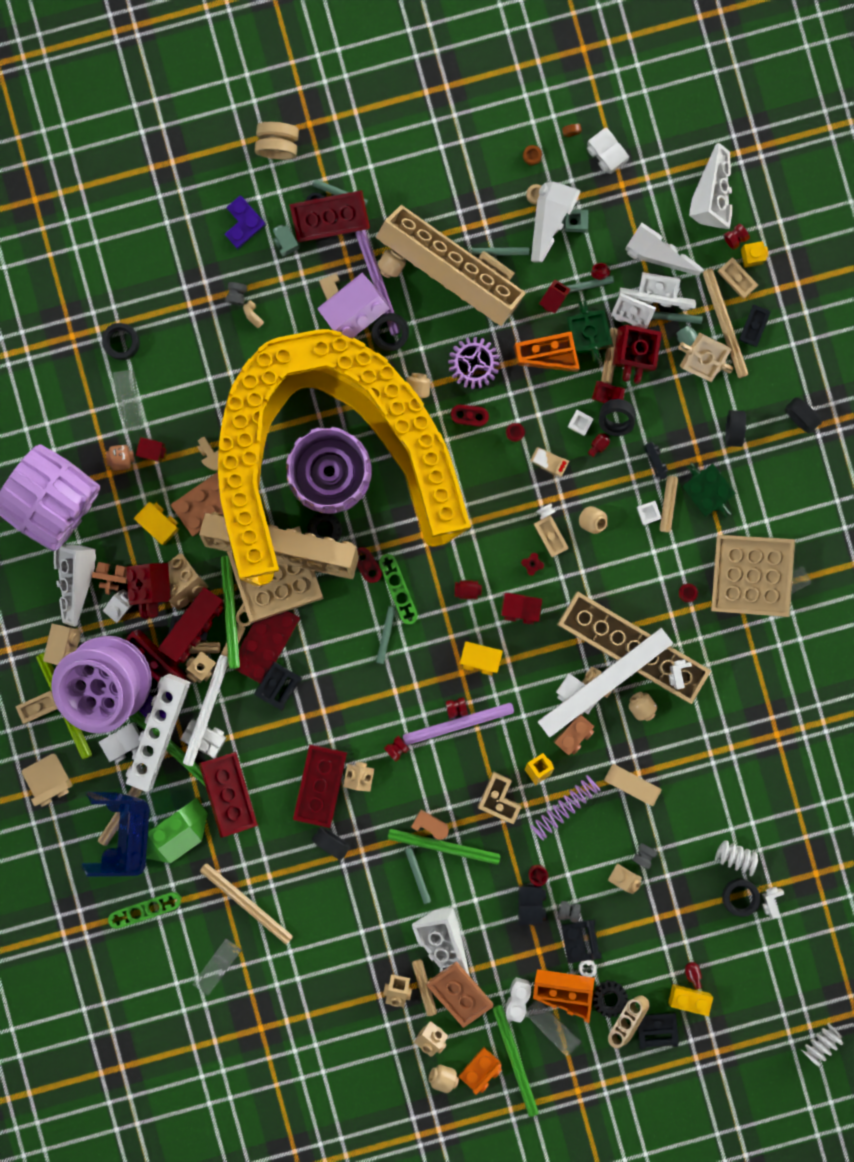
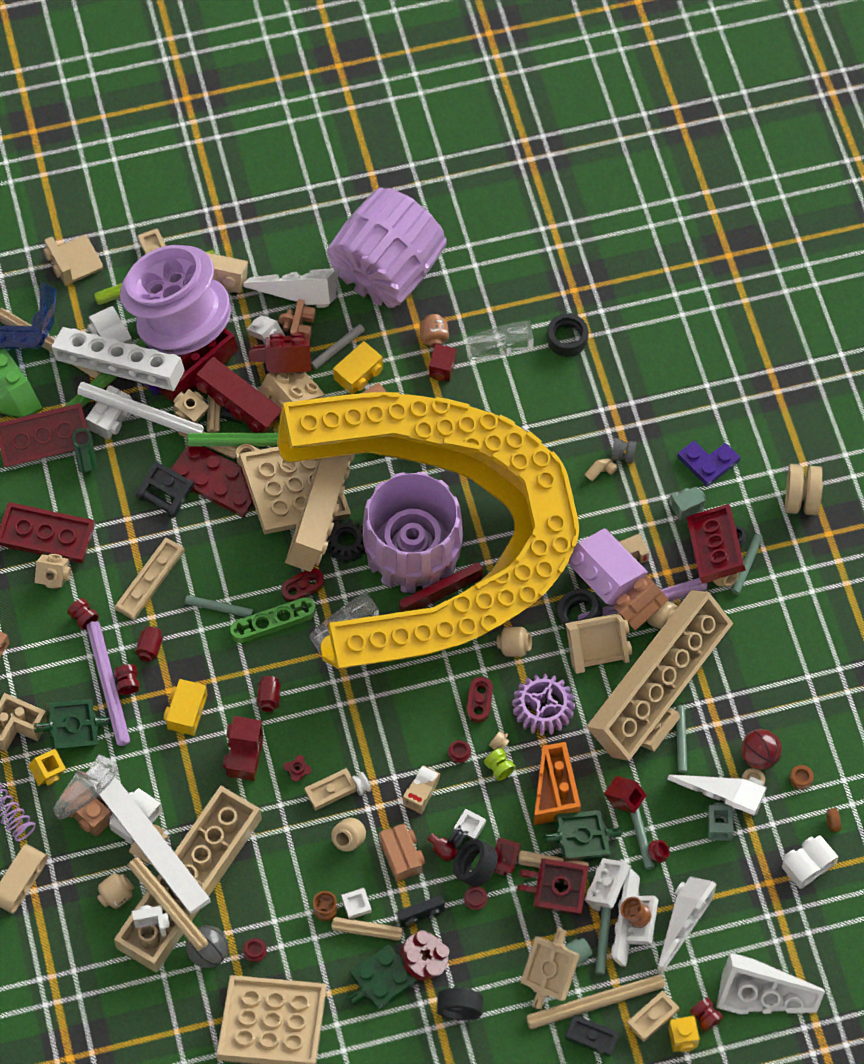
camera: 90 degrees right, 25 degrees down
(131, 540) = (337, 346): none -> light grey bar
(243, 757) = (84, 452): none -> dark green piece
(360, 694) = (149, 578): none -> tan tile
(369, 448) = (442, 588): none -> dark red tile
(386, 280) = (640, 602): none -> nougat brick
(403, 529) = (357, 608): none -> clear slope
(419, 316) = (598, 641): none -> tan panel
(424, 691) = (149, 644): none -> dark red brick
(501, 750) = (72, 724): none -> dark green plate
(506, 399) = (499, 741): none -> tan plate
(514, 185) = (761, 749): none -> dark red piece
(524, 401) = (499, 764): none -> lime wheel
(565, 733) = (85, 787): none -> clear slope
(594, 431) = (457, 836): none -> black bush
(605, 477) = (401, 852): none -> nougat brick
(643, 418) = (475, 898): none -> dark red plate
(652, 537) = (324, 900): none -> dark orange wheel
(658, 292) = (635, 912): none -> dark orange wheel
(664, 661) = (168, 904): none -> tan axle
(691, 630) = (215, 950): none -> dark grey piece
(693, 447) = (433, 947): none -> plate

